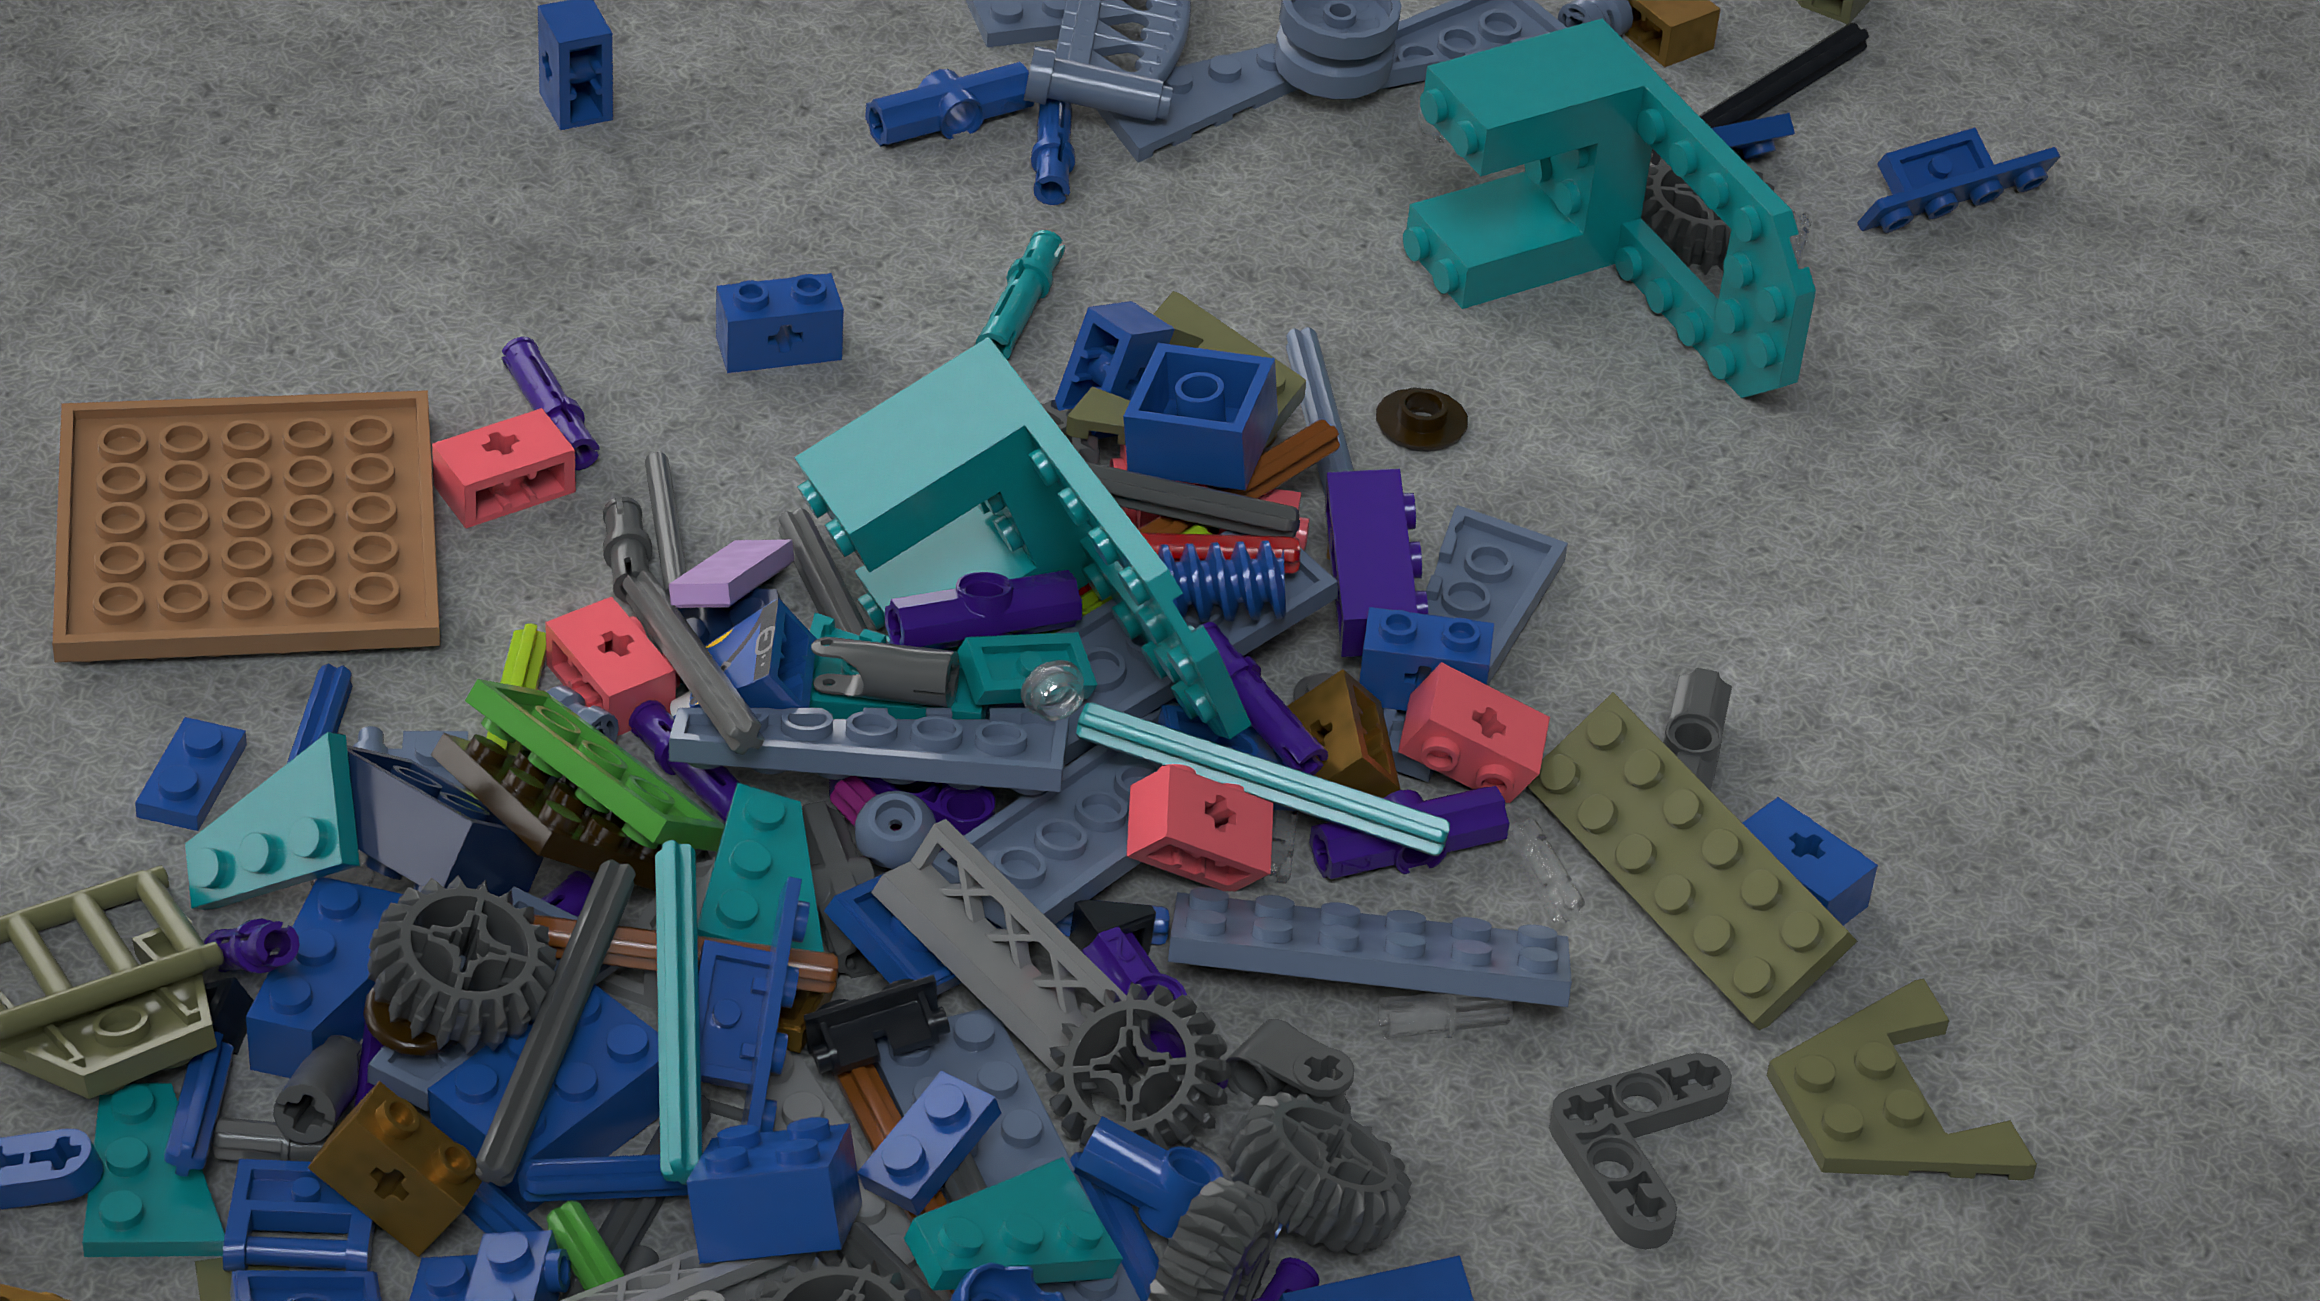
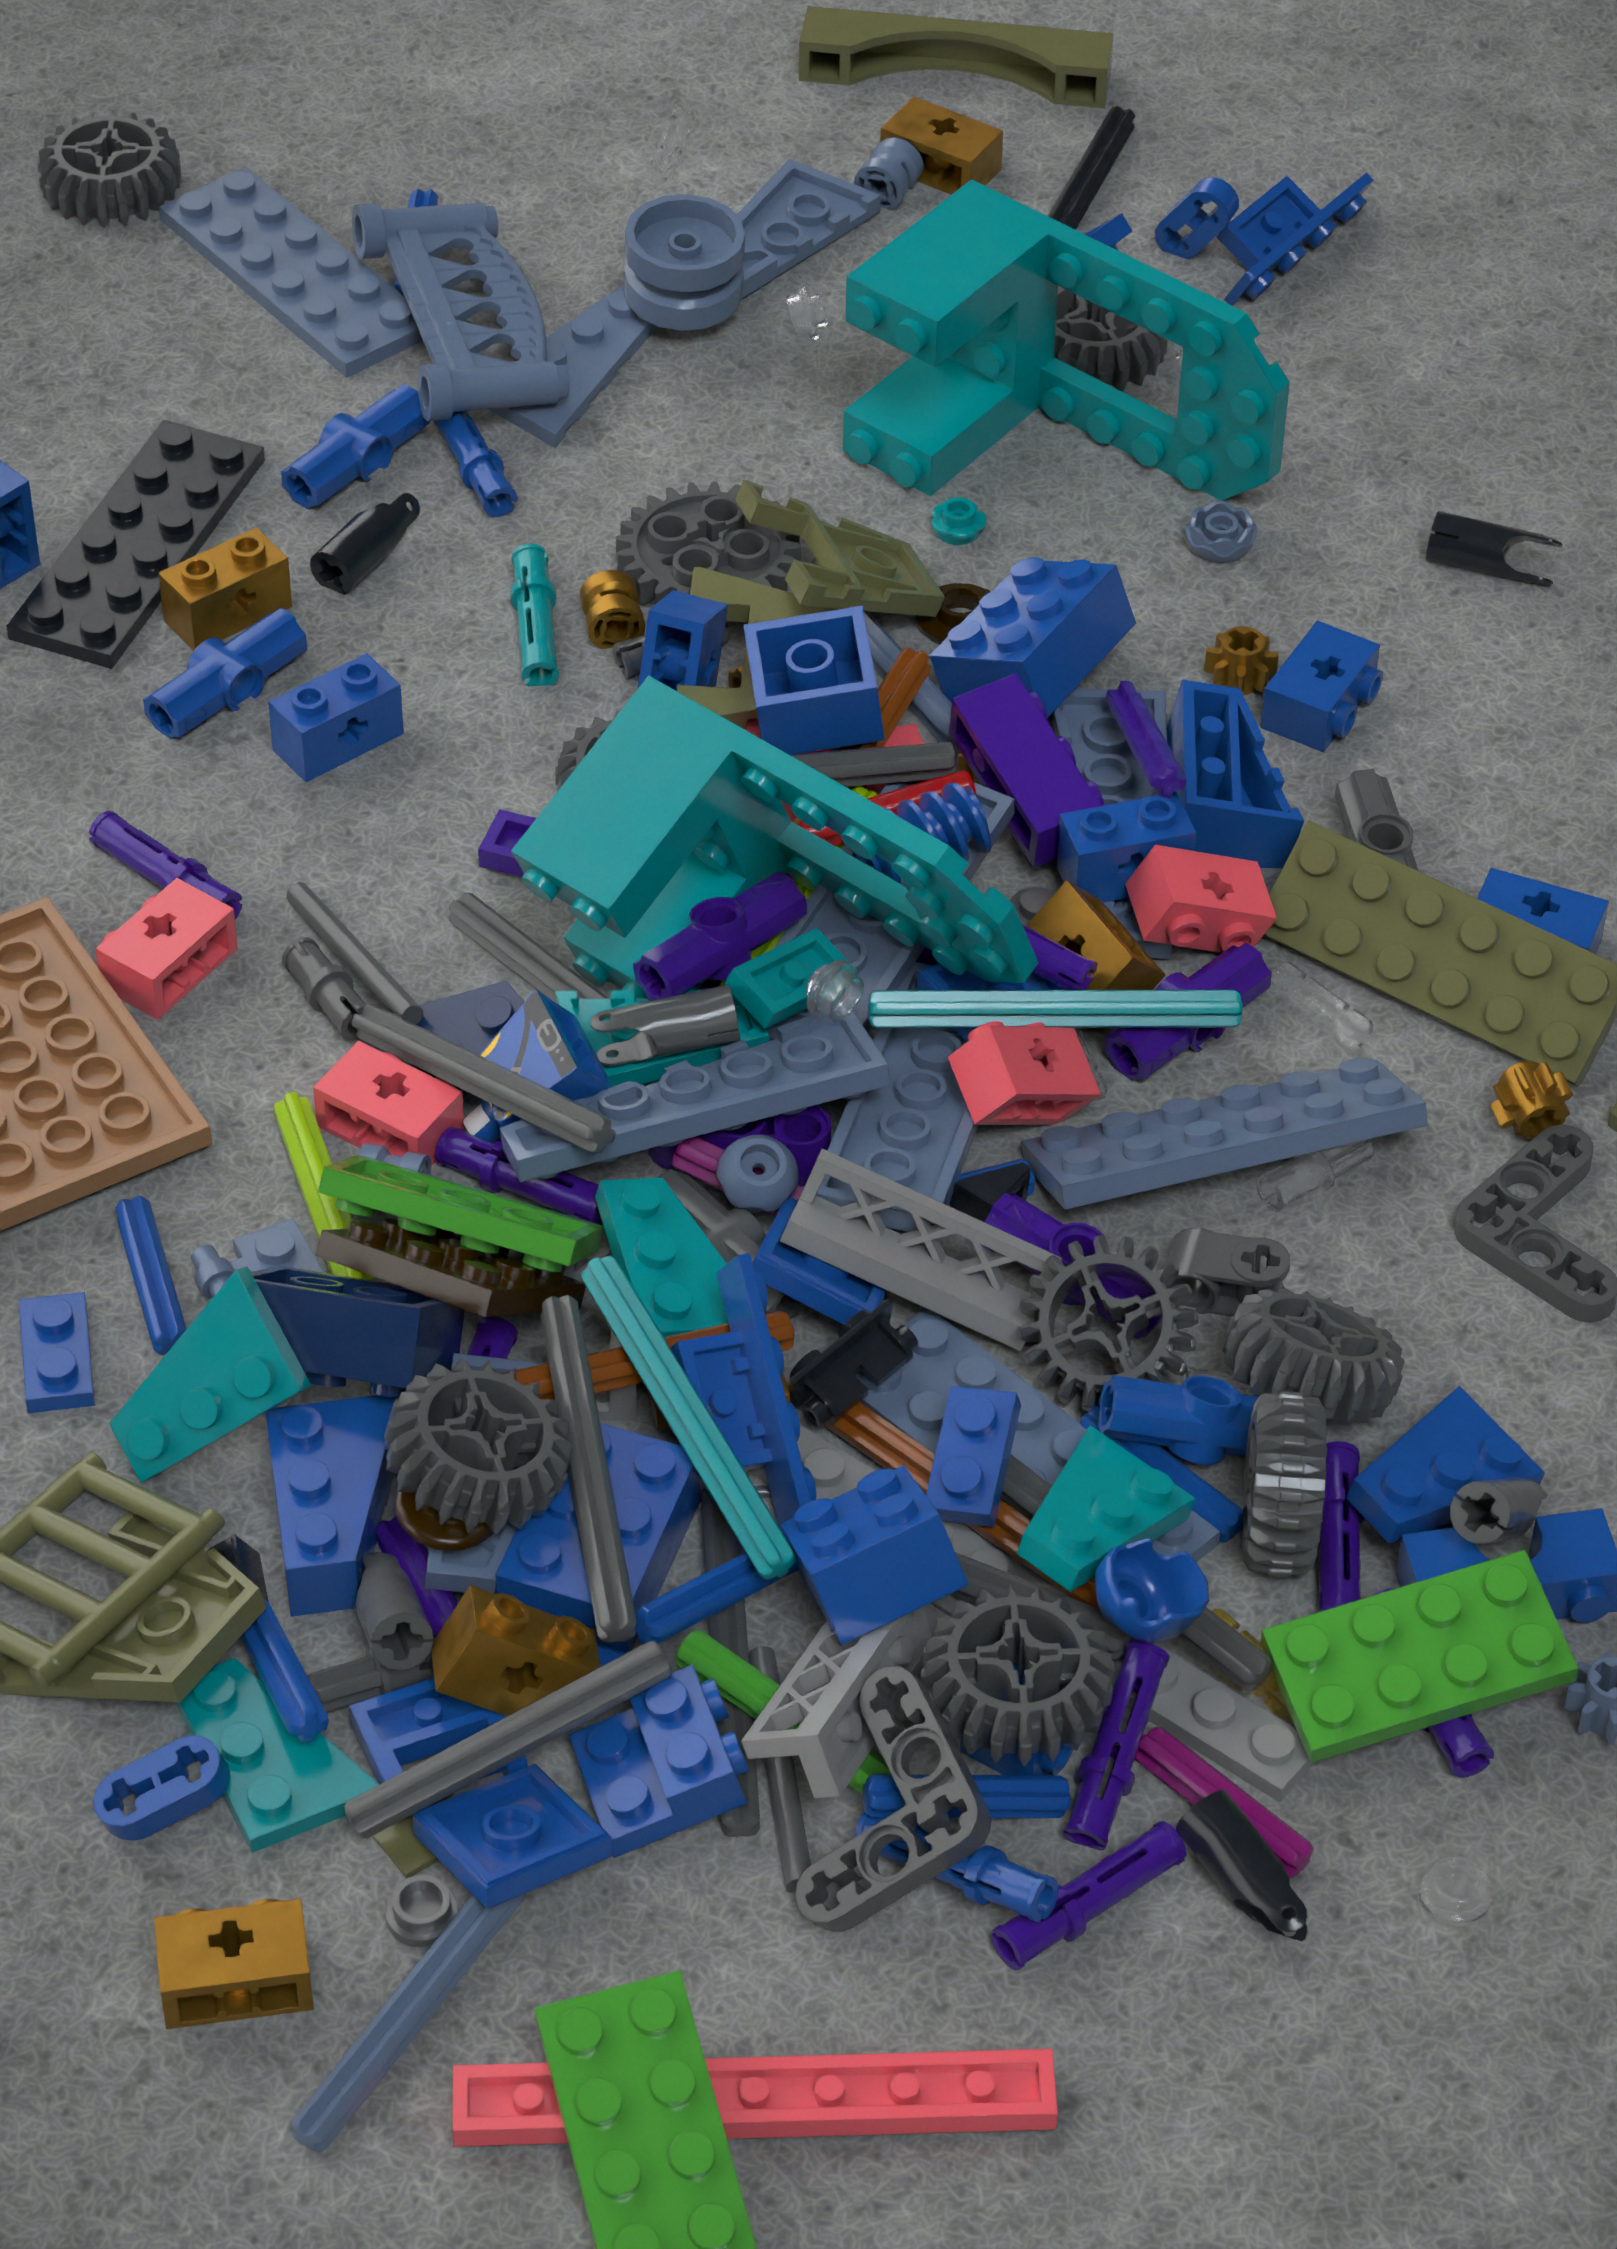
camera: 20 degrees left, 5 degrees up
(253, 943) = (260, 1498): dark purple pin -> none
(349, 1235) = (508, 1739): none -> dark grey axle
(705, 127) = (147, 522): none -> black plate
(708, 256) = (225, 673): none -> blue piece
(731, 573) = (452, 979): lavender tile -> none
(751, 185) = (225, 588): none -> pearl gold brick
(903, 186) = (363, 544): none -> black piece
(1087, 291) = (611, 608): none -> pearl gold wheel
(1223, 274) = (704, 532): none -> dark grey gear
(1336, 340) = (851, 561): none -> olive wing
(1469, 450) = (1043, 624): none -> blue brick
(1470, 337) = (958, 521): none -> teal plate
(1499, 571) = (1145, 739): none -> dark purple axle
(1565, 636) = (1229, 782): none -> blue wedge
(1660, 540) = (1241, 660): none -> pearl gold gear
(1693, 1020) = (1531, 1098): none -> pearl gold gear
(1716, 422) = (1221, 532): none -> sand blue plate
(1723, 587) = (1321, 687): none -> blue brick
(1856, 132) = (1190, 212): none -> blue beam
(1964, 512) = (1481, 546): none -> black piece

